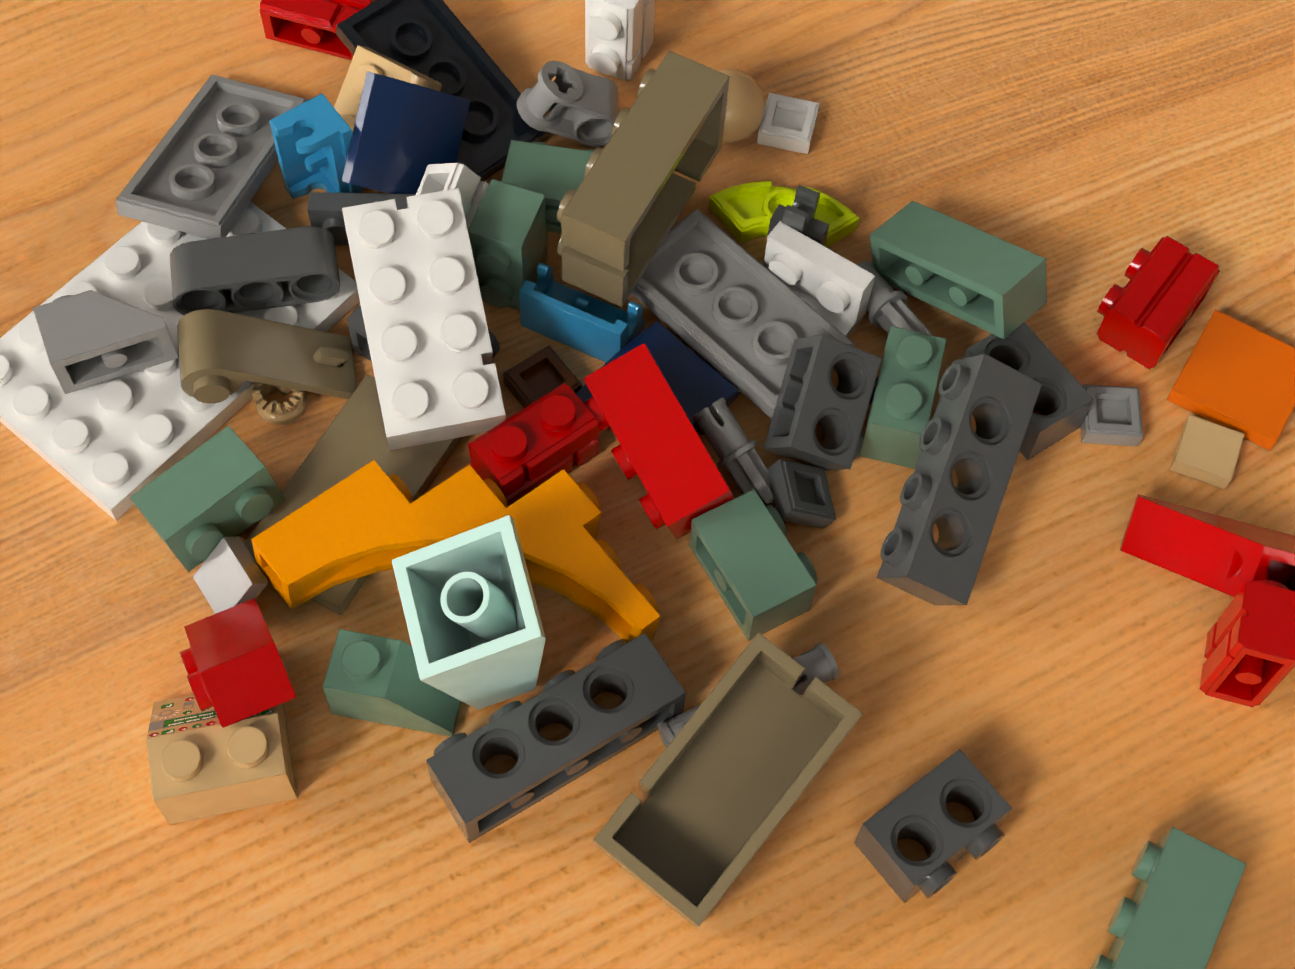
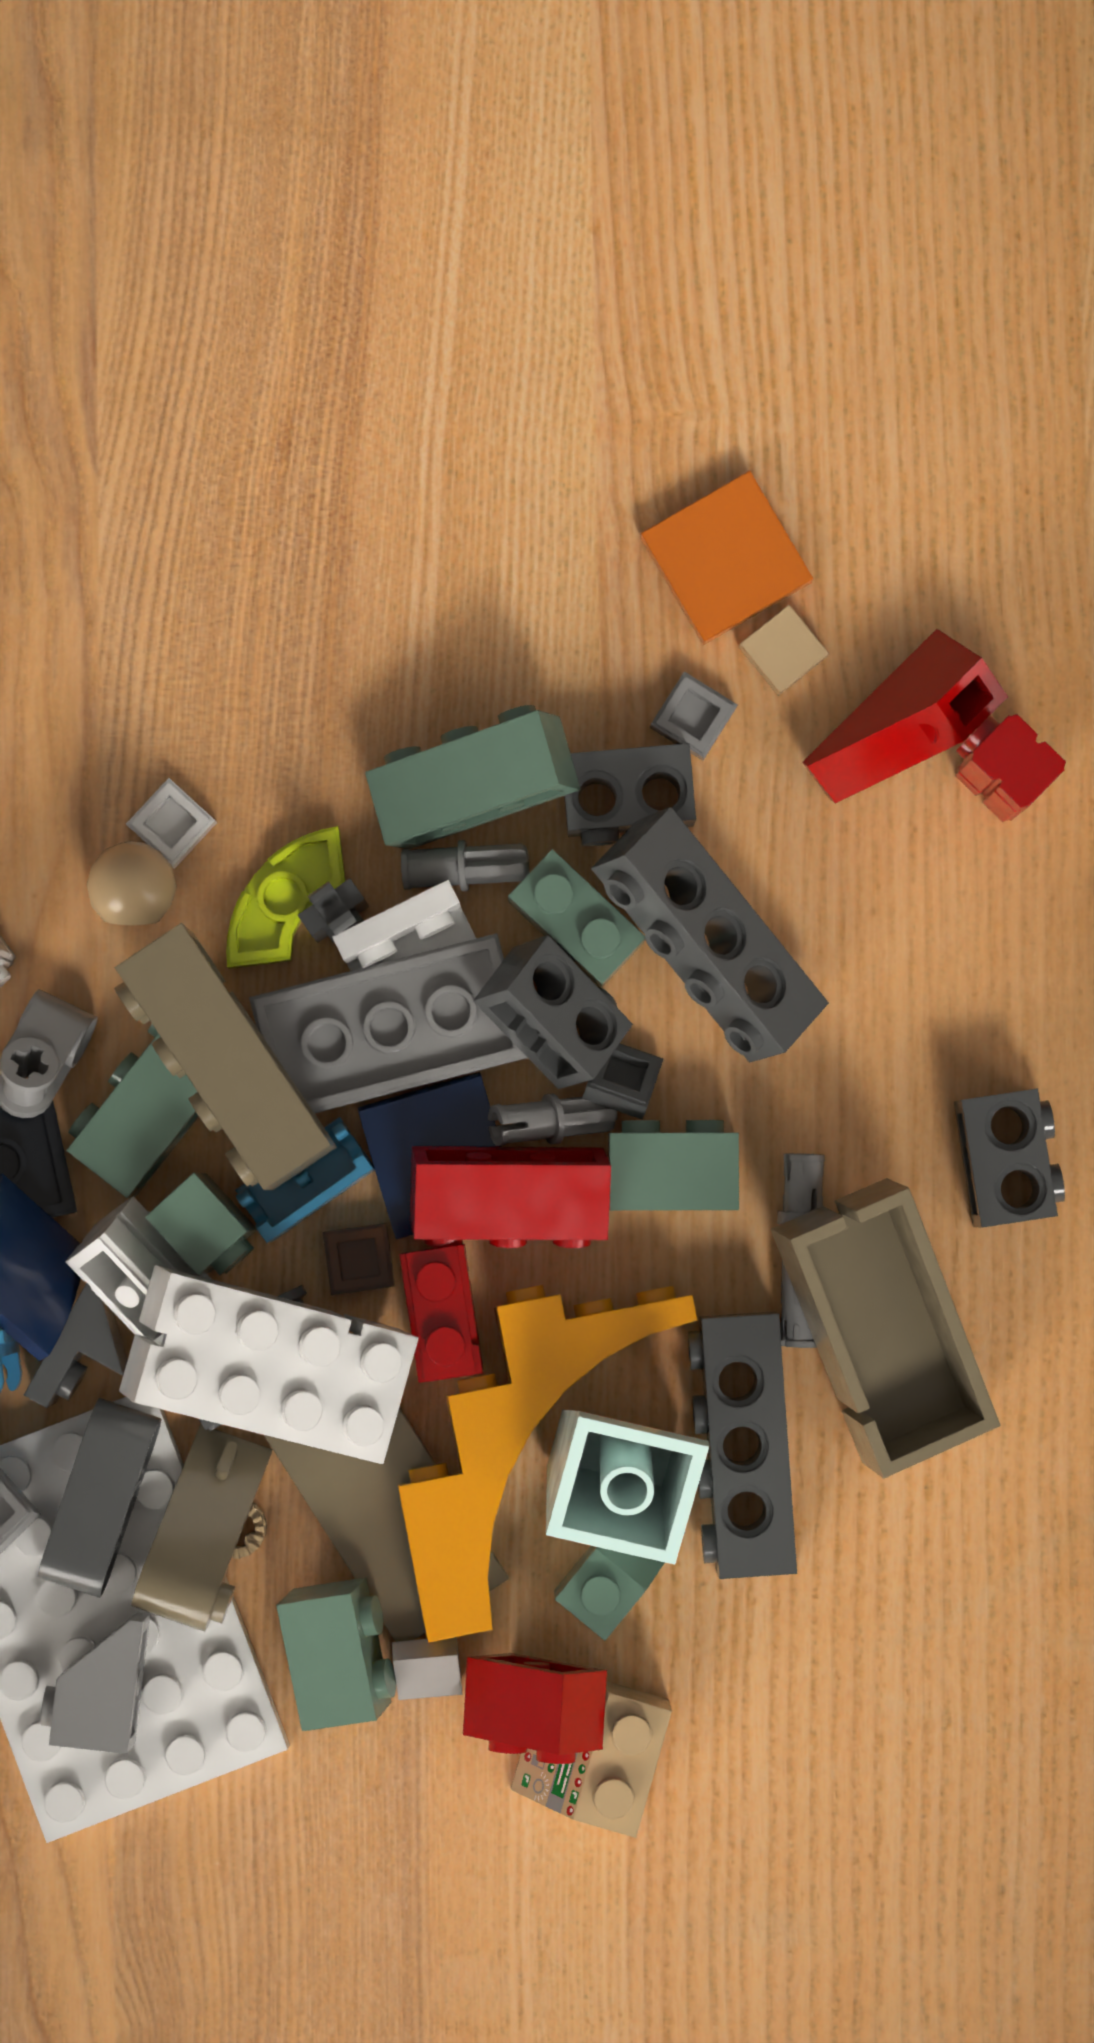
camera: 60 degrees left, 25 degrees up
(1156, 301) = (603, 589): red brick -> none

